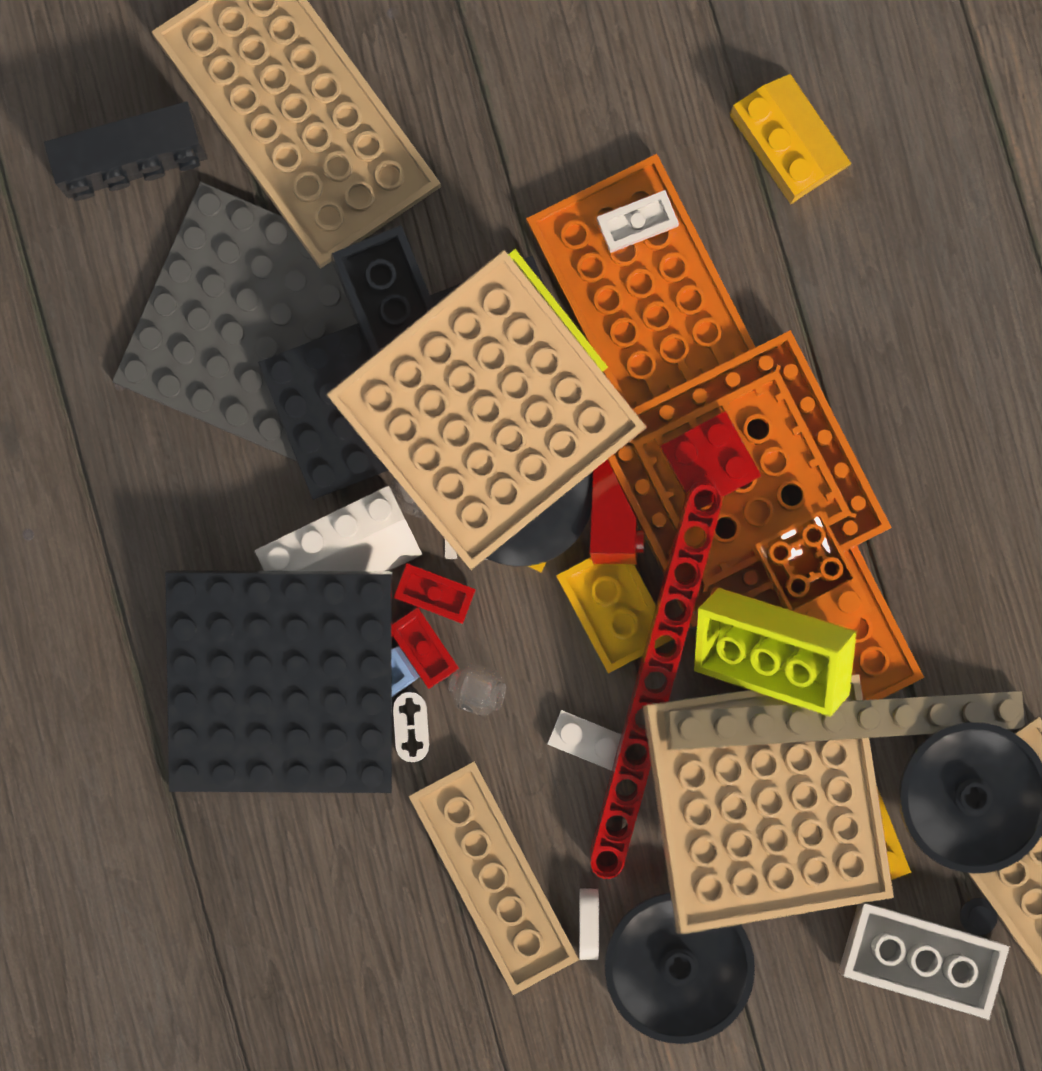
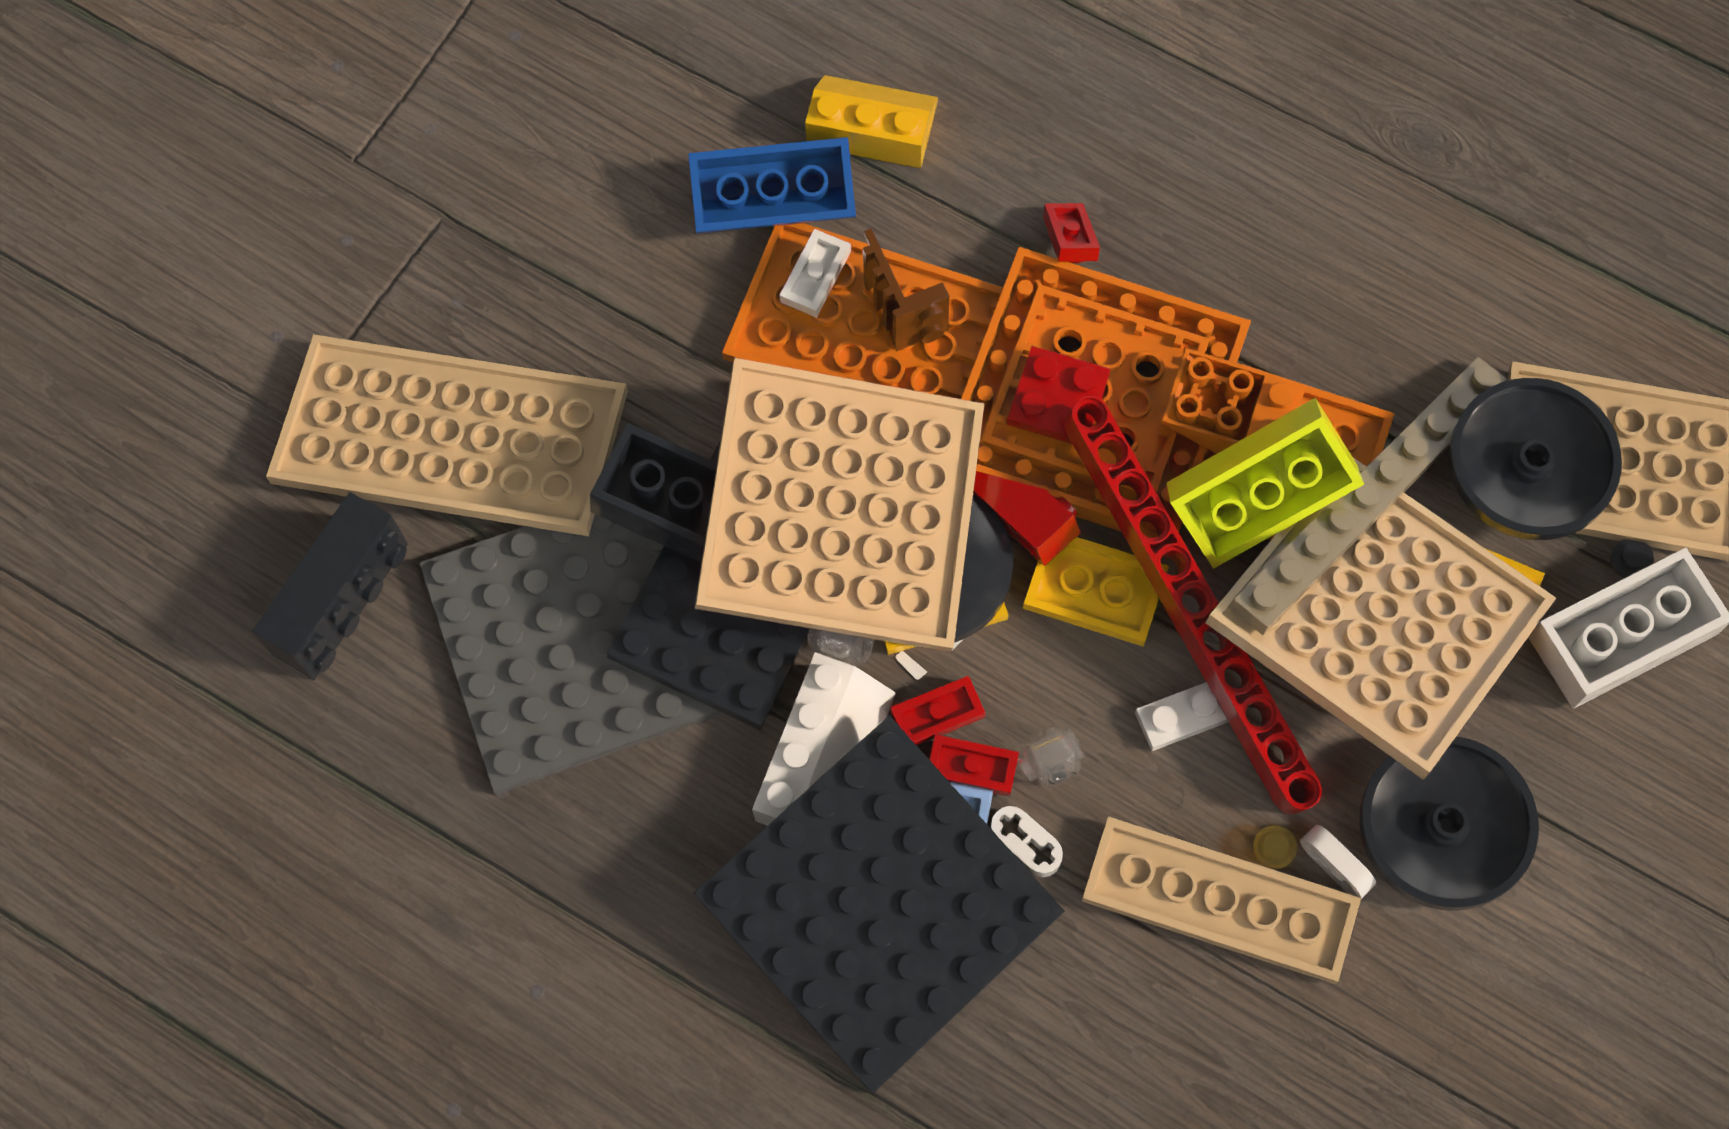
camera: 40 degrees left, 15 degrees down
(560, 877) = (1274, 847): none -> clear yellow plate
(668, 131) = (772, 185): none -> blue slope
(672, 324) = (912, 318): none -> reddish brown plate
(838, 351) = (1071, 232): none -> red plate

